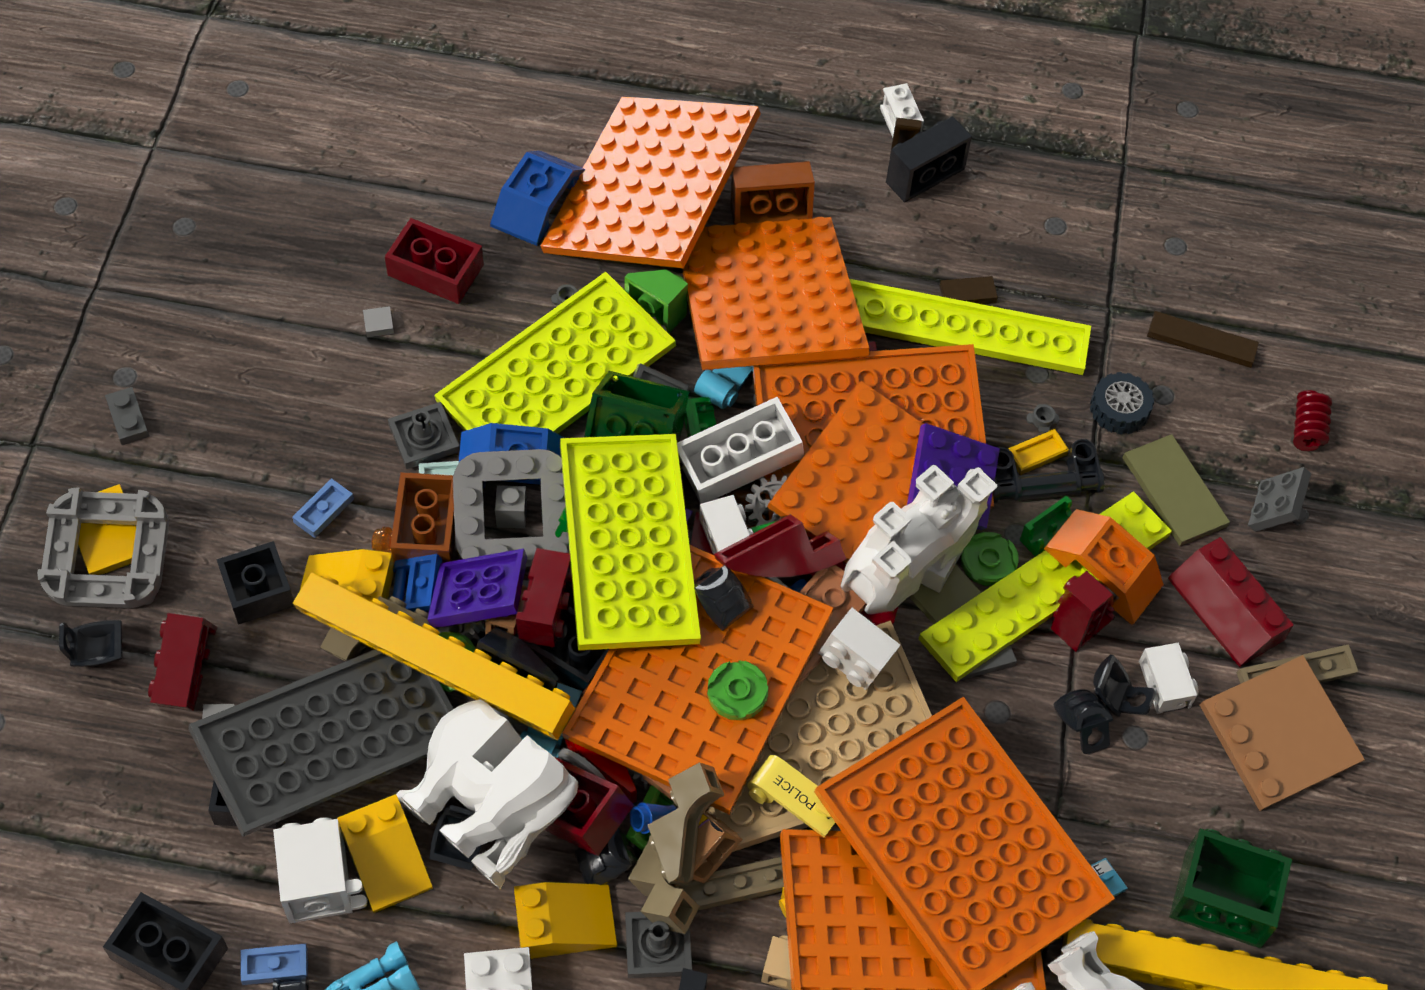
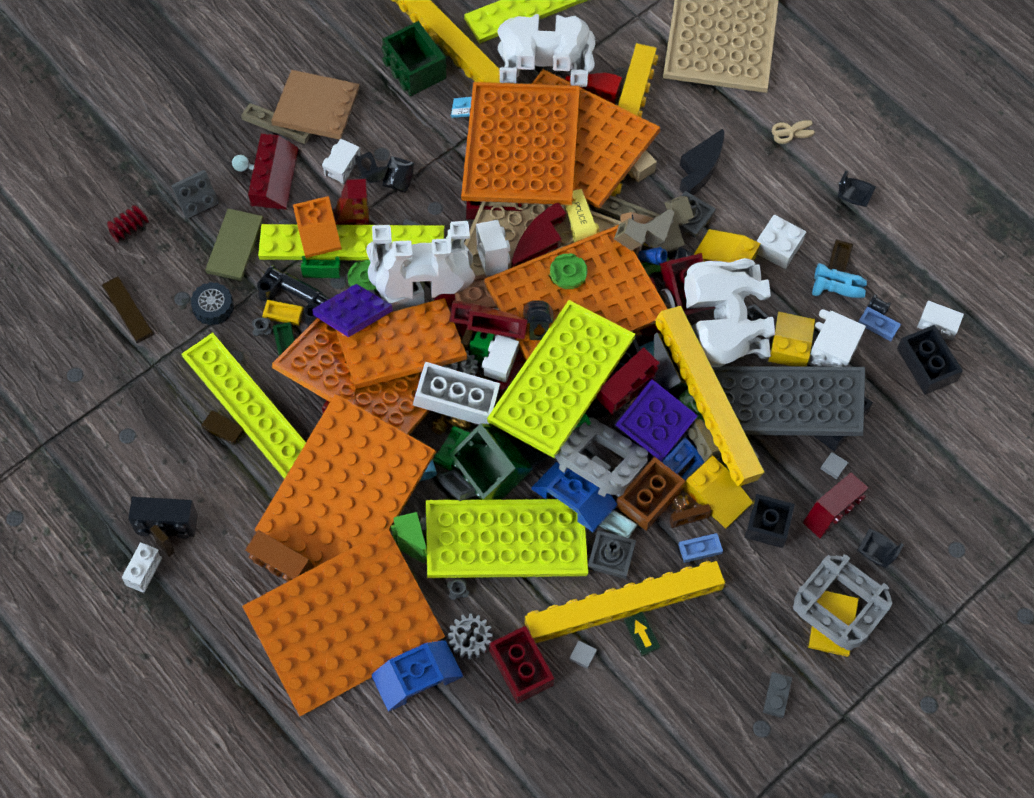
camera: 140 degrees left, 5 degrees up
(327, 381) = (641, 634): none -> clear green tile
(362, 530) = (683, 517): none -> reddish brown plate
(366, 396) = (624, 602): none -> yellow brick
(522, 249) = (460, 640): none -> light grey gear
(818, 724) = (540, 236): none -> dark red slope
(1004, 423) = (283, 336): none -> dark green tile
(1280, 587) = (241, 163): none -> light aqua piece

